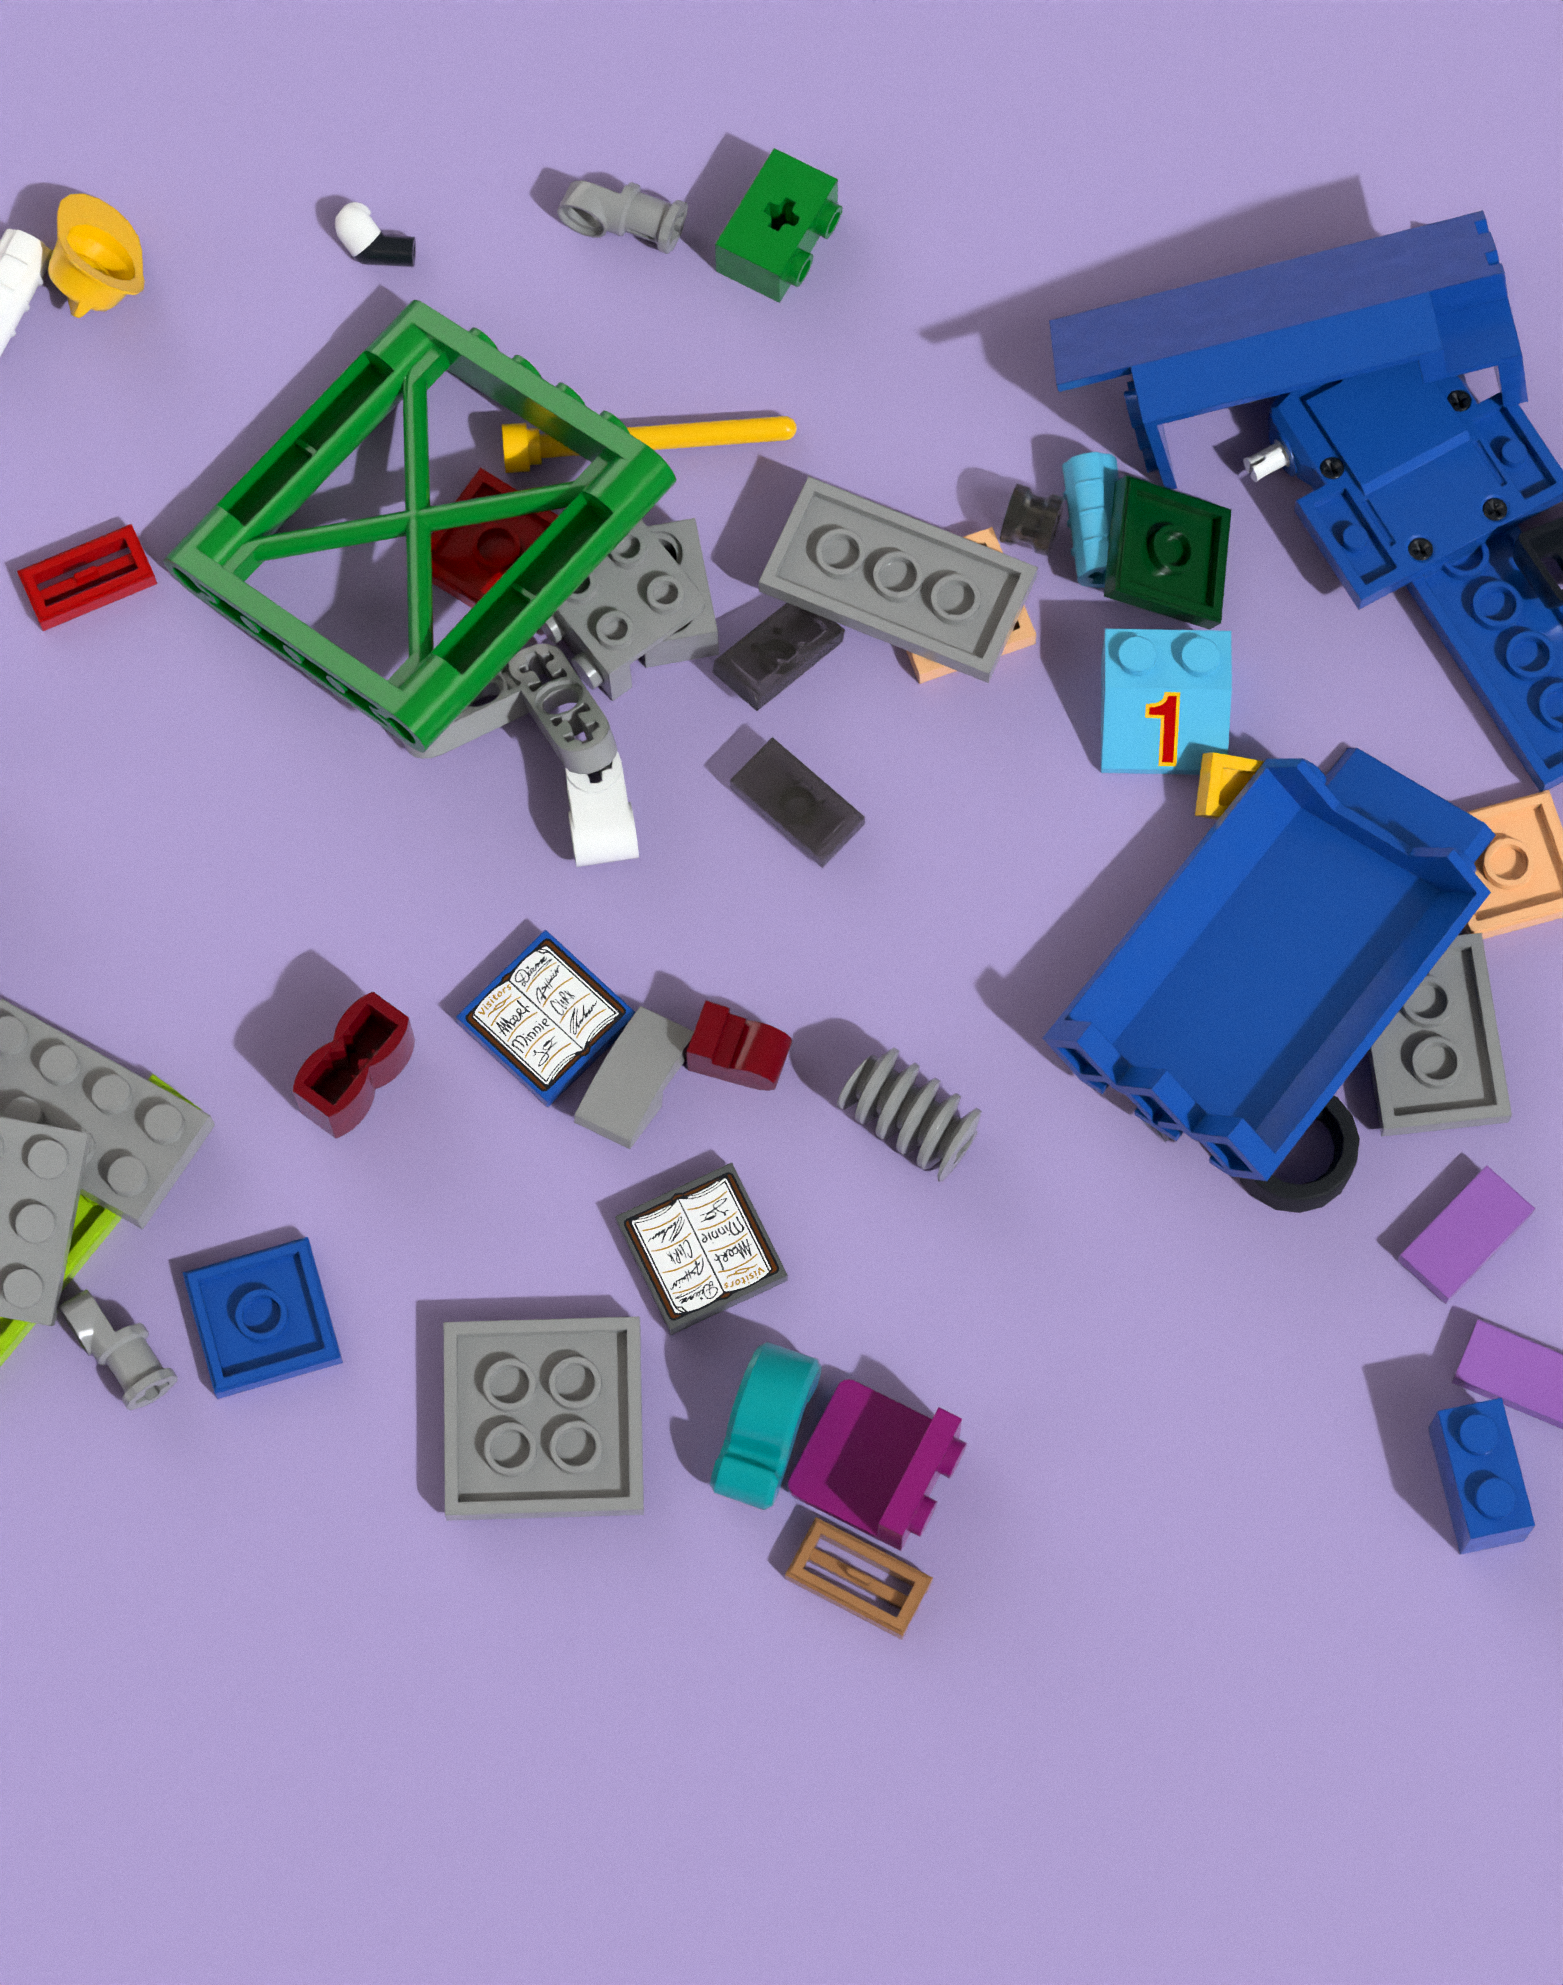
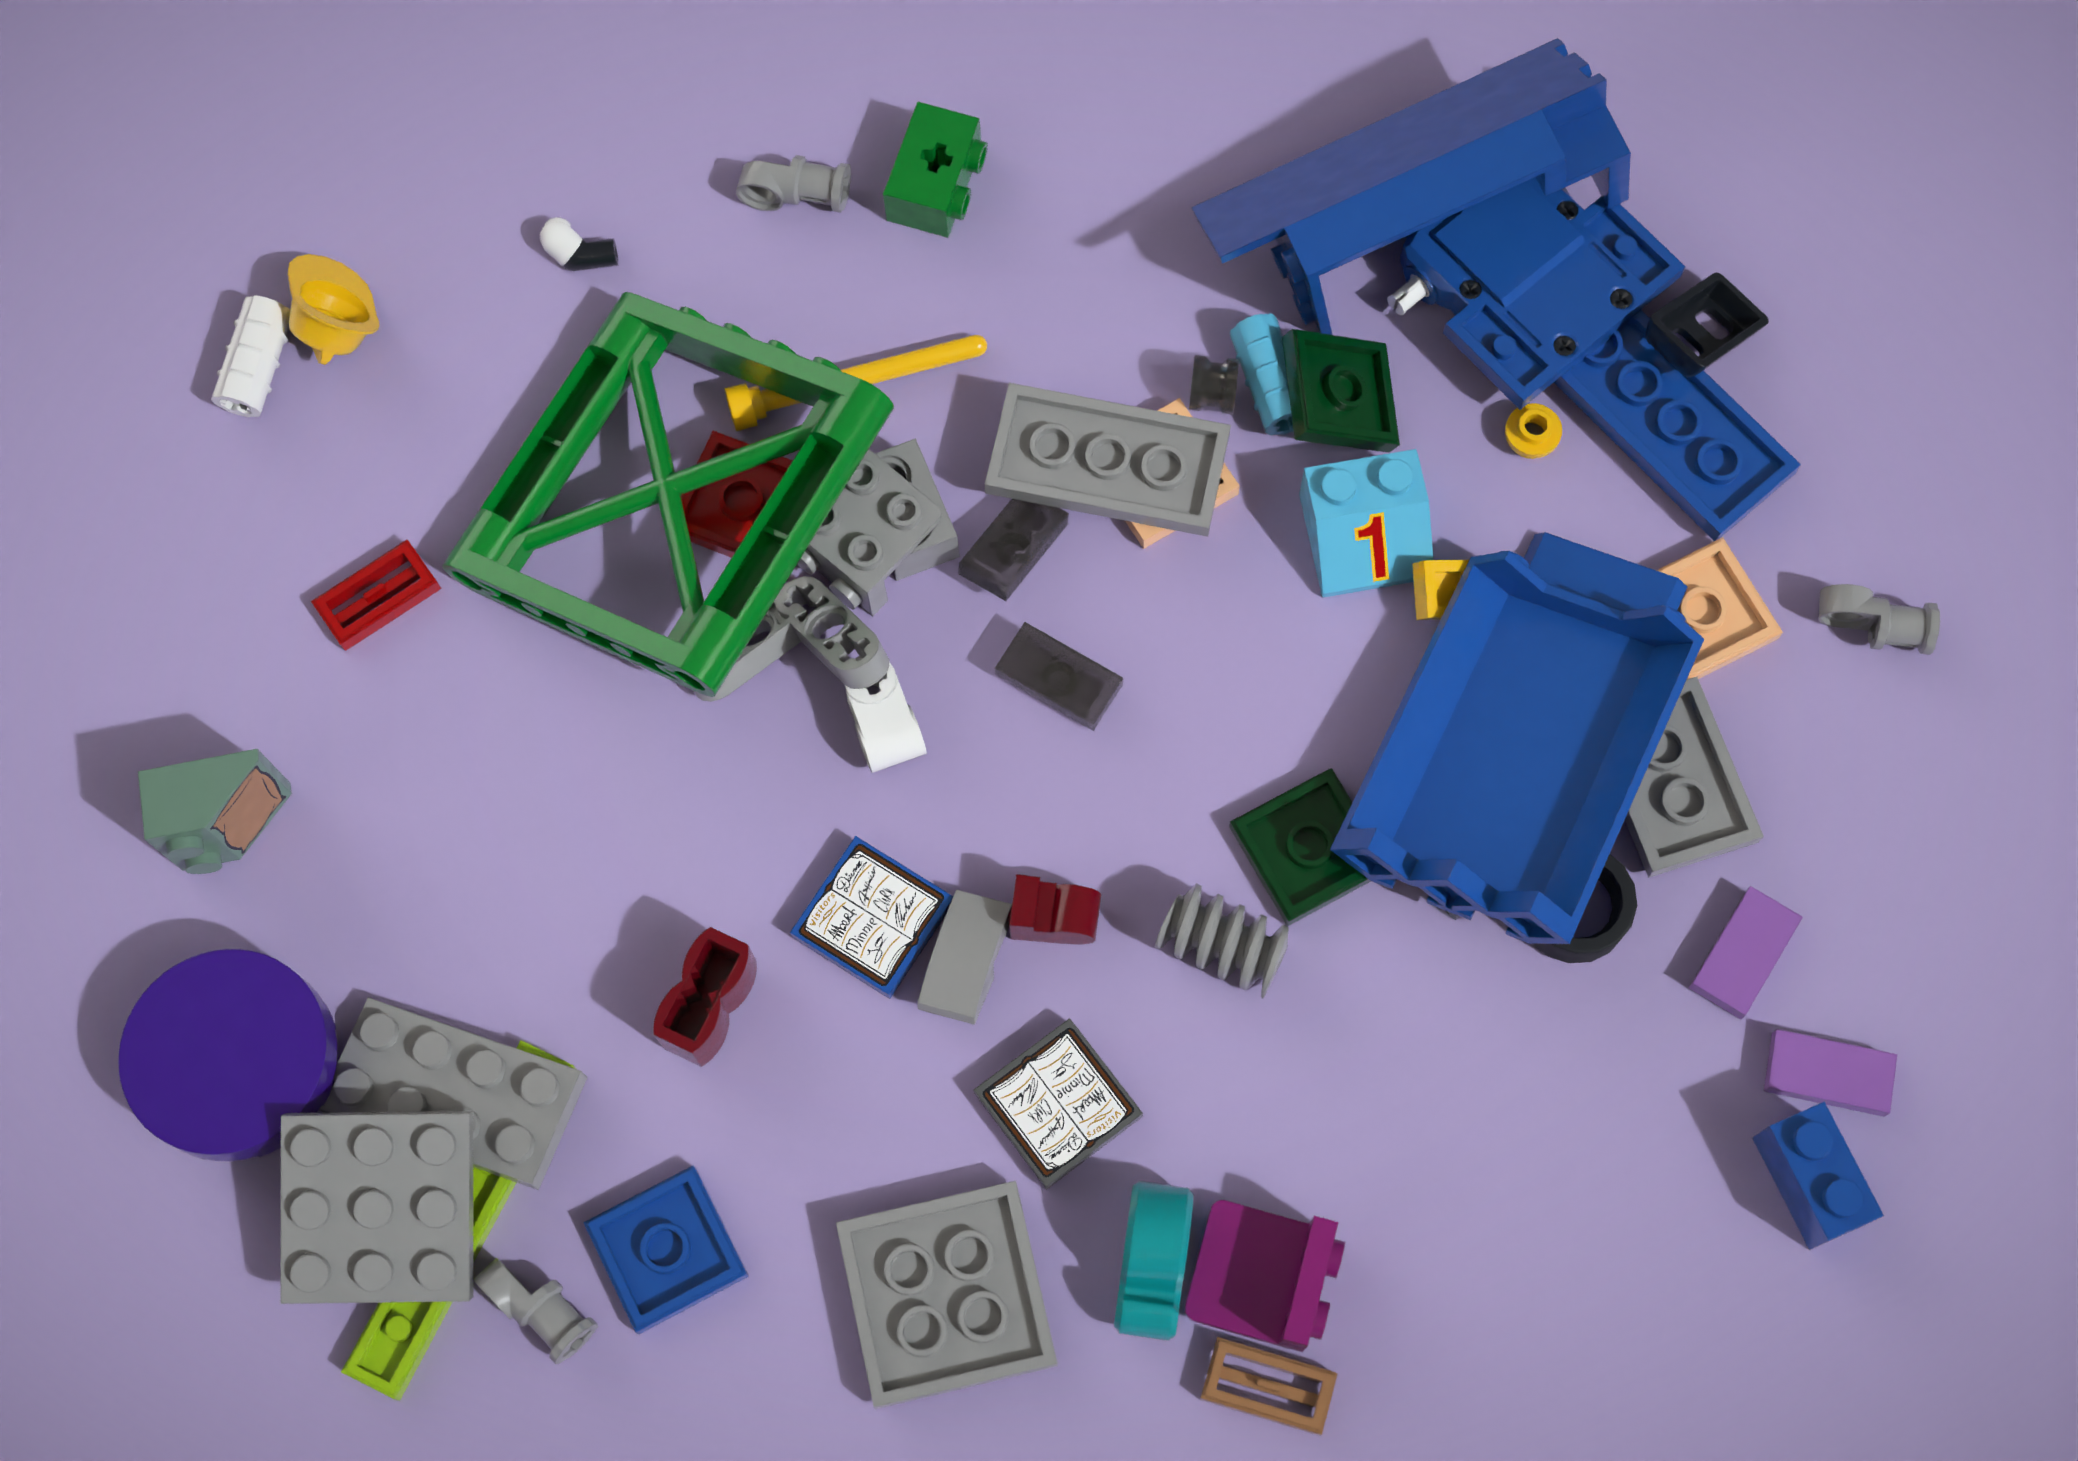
camera: 10 degrees left, 0 degrees up
(1003, 1032) = (1291, 846): none -> dark green tile
(1367, 651) = (1528, 444): none -> yellow plate

